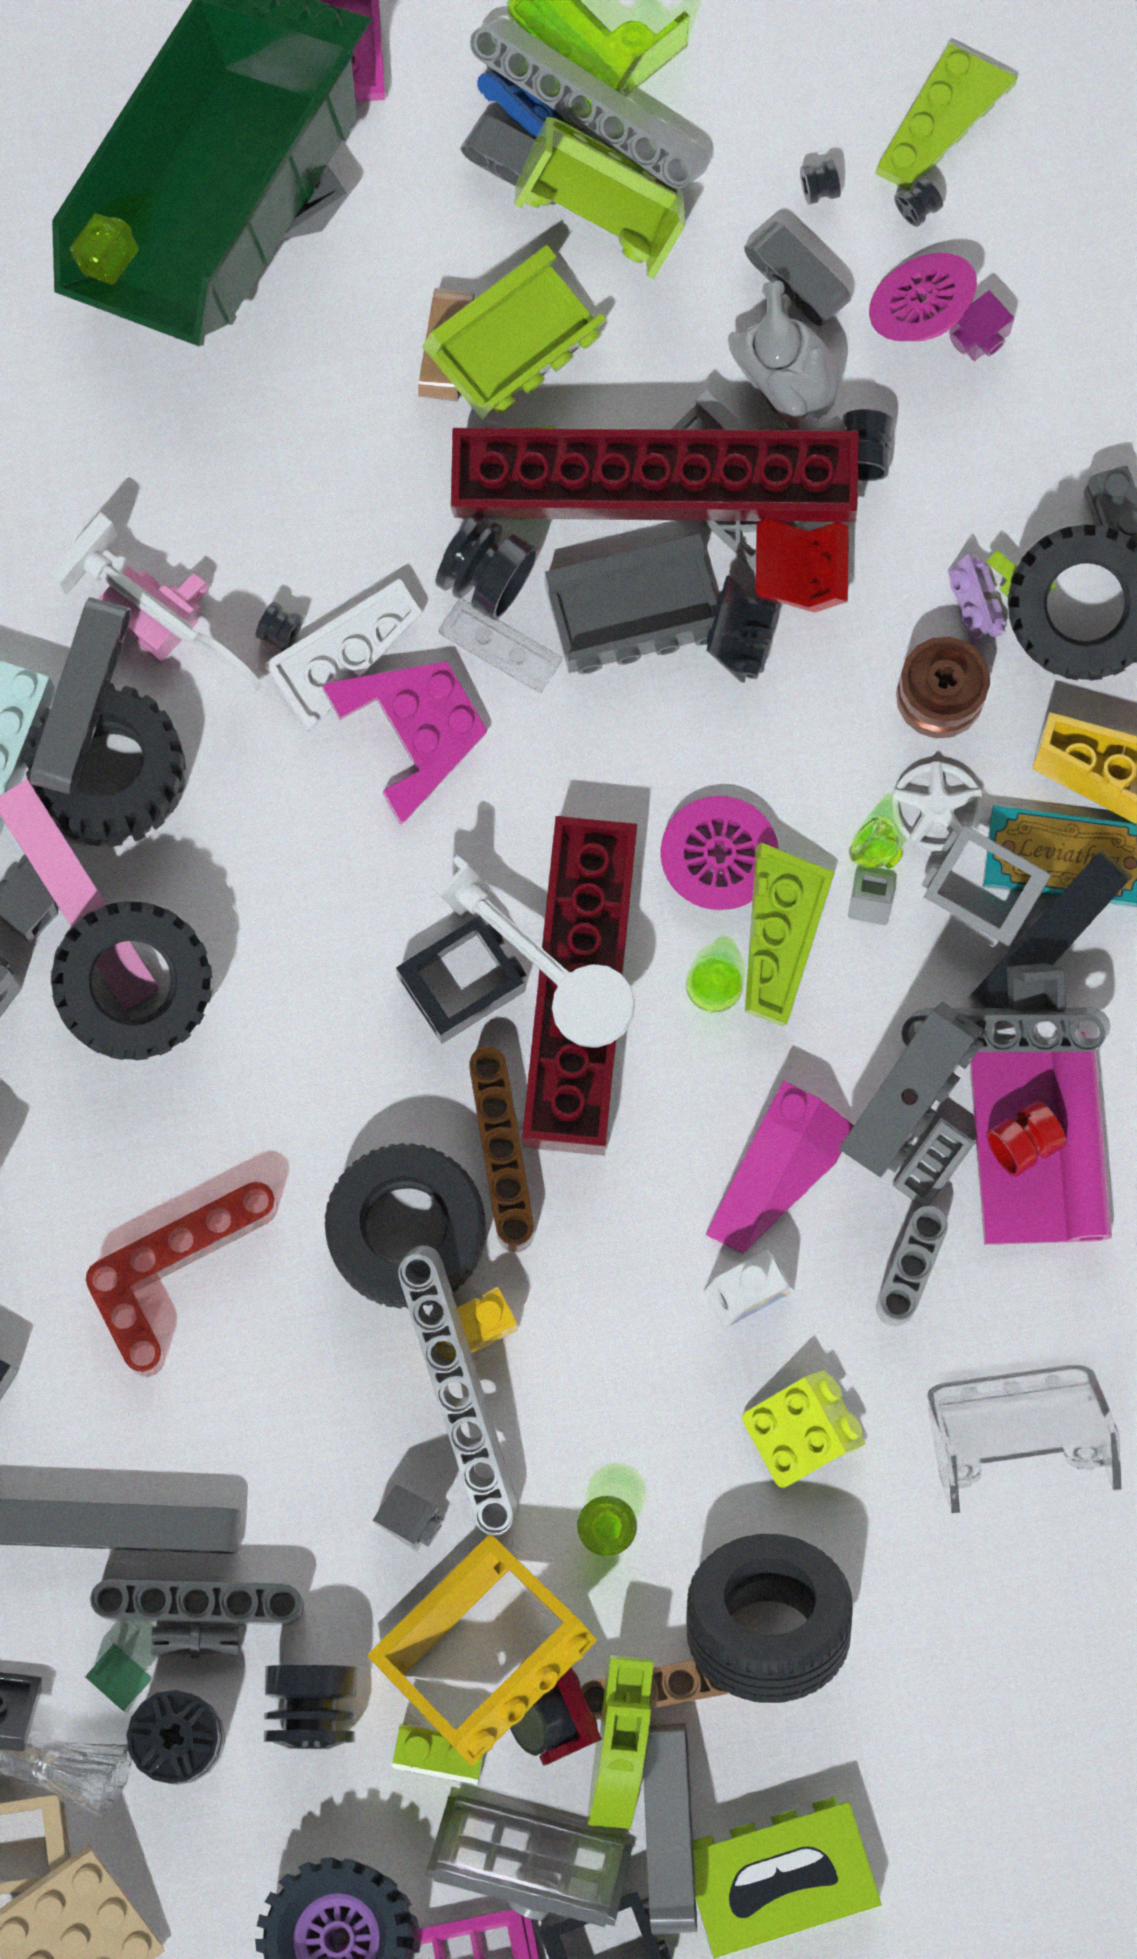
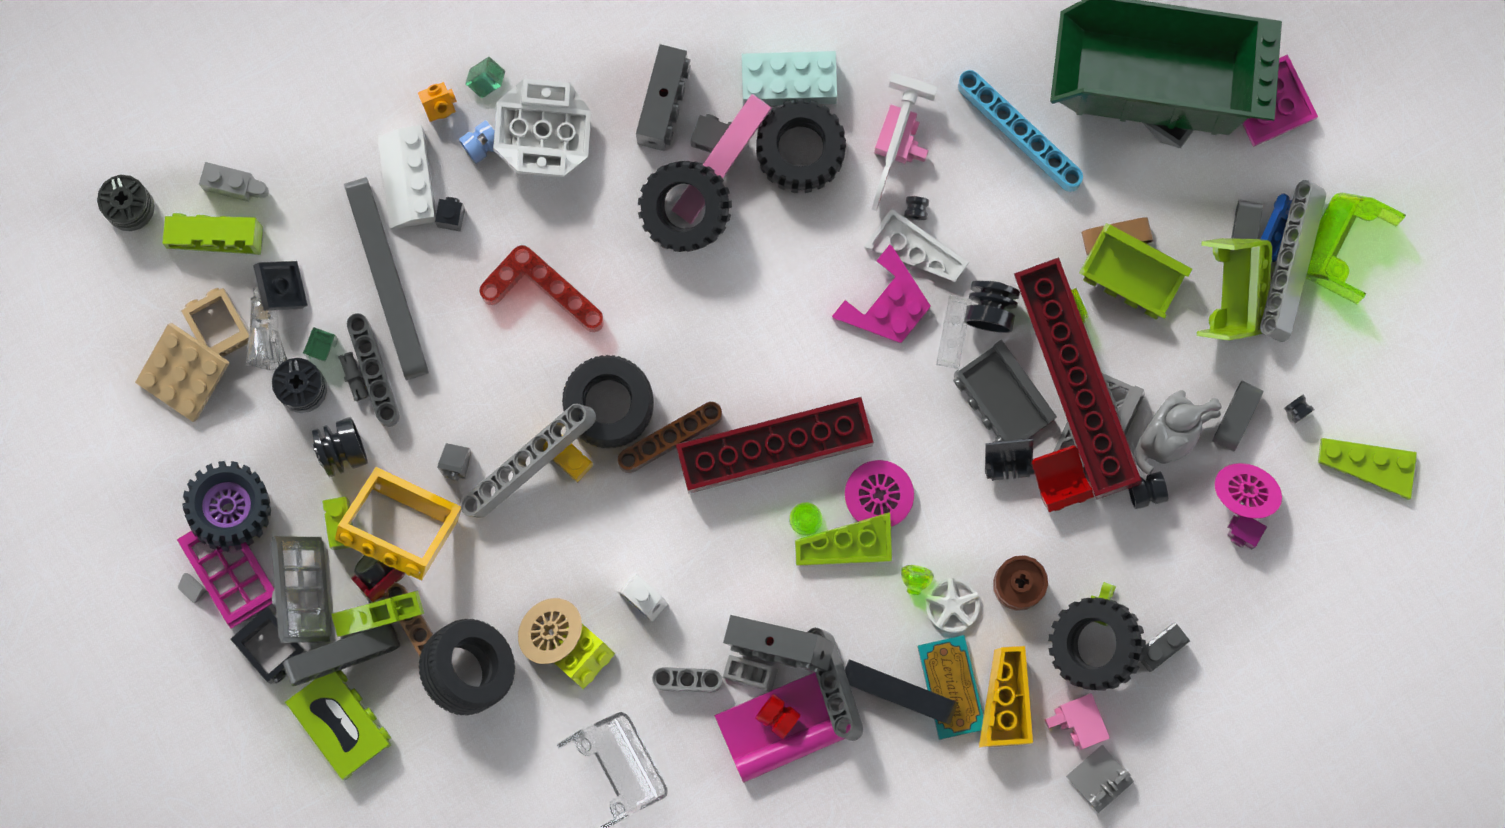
camera: 70 degrees right, 5 degrees up
(80, 696) = (827, 117): dark grey beam -> none
(104, 248) = (1092, 28): clear neon green brick -> none
(209, 442) = (1017, 119): none -> medium azure beam
(441, 1025) = (735, 367): black window -> none
(590, 1003) = (760, 452): white piece -> none
(607, 1525) = (487, 566): clear neon green brick -> none
(722, 1487) = (532, 620): none -> tan piece
(785, 1159) = (715, 589): dark pink wedge -> none
(871, 897) = (887, 586): light grey slope -> none
(918, 201) = (1309, 469): black wheel -> none
(954, 847) = (928, 672): light grey window -> none
(970, 583) = (1089, 577): lavender hinge -> none
(1036, 987) = (863, 691): dark grey panel -> none

